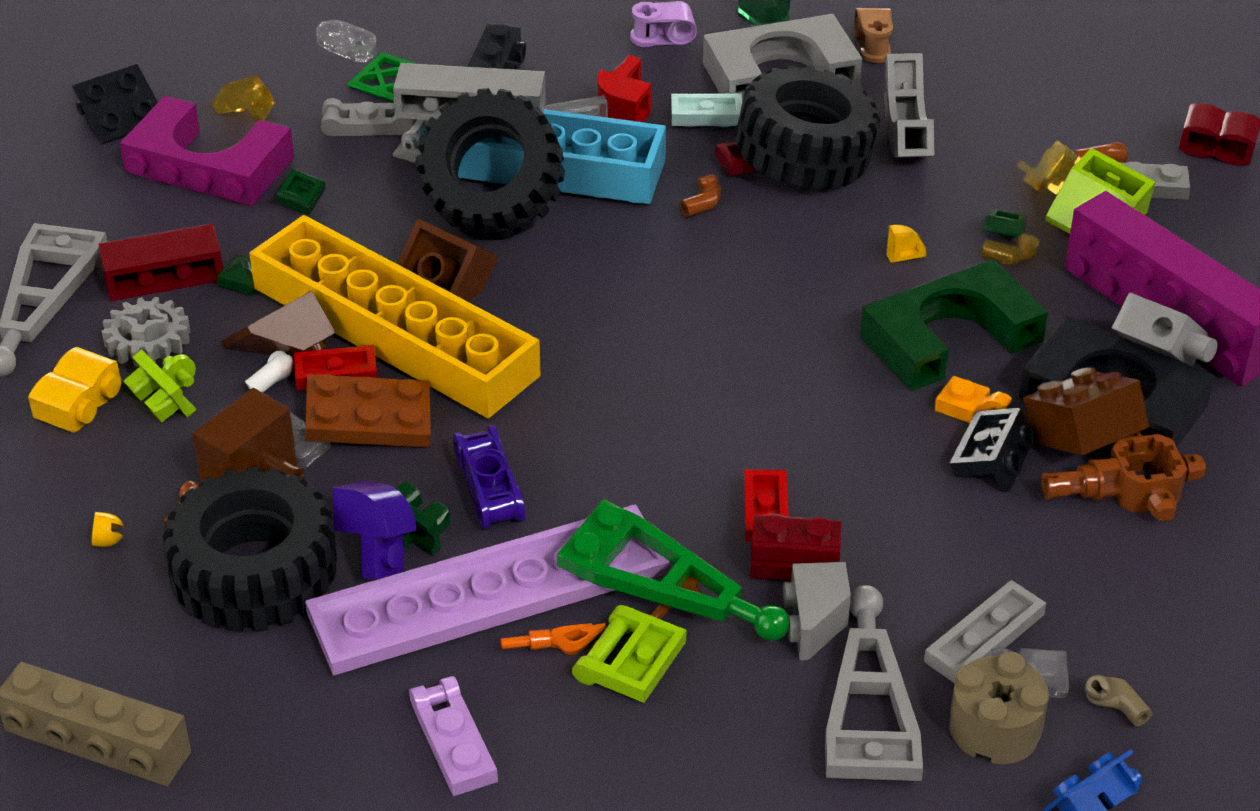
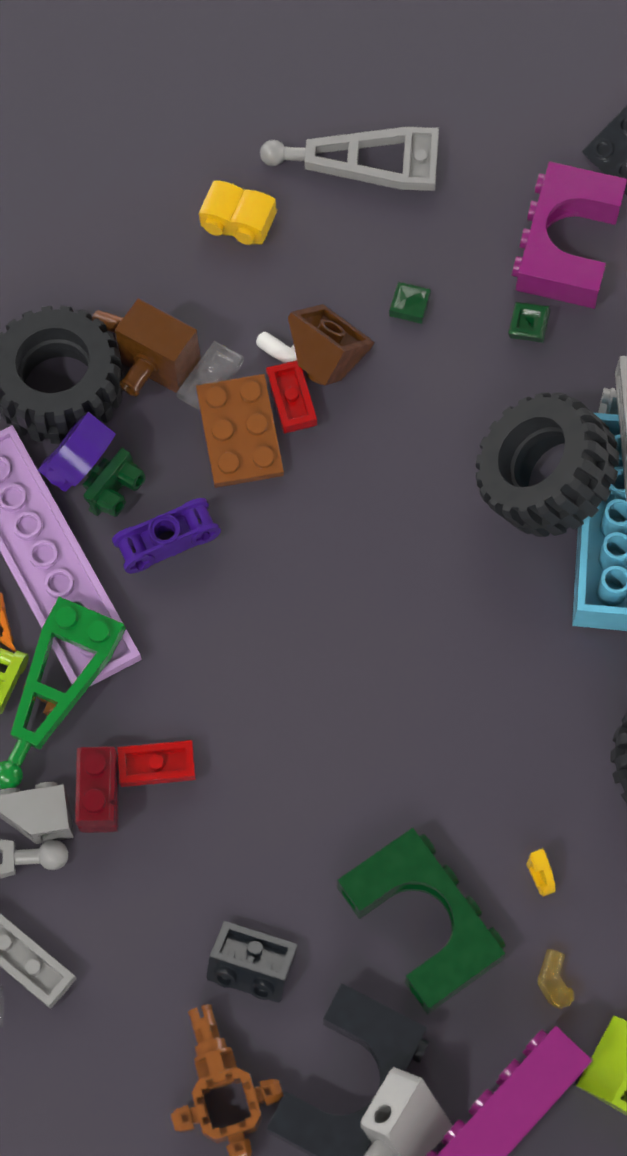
camera: 85 degrees right, 25 degrees up
(102, 529) = (86, 273): yellow hinge -> none
(146, 326) = (331, 247): light grey gear -> none
(161, 262) = (407, 234): dark red brick -> none
(176, 373) = (251, 273): lime hips -> none
(401, 314) = (350, 427): yellow brick -> none
(447, 260) = (429, 457): reddish brown slope -> none
(705, 199) = (589, 677): dark orange arm -> none
(963, 398) = (320, 939): light orange plate -> none
(1005, 223) = (595, 973): dark green tile -> none
(1086, 411) = (282, 1042): reddish brown brick -> none

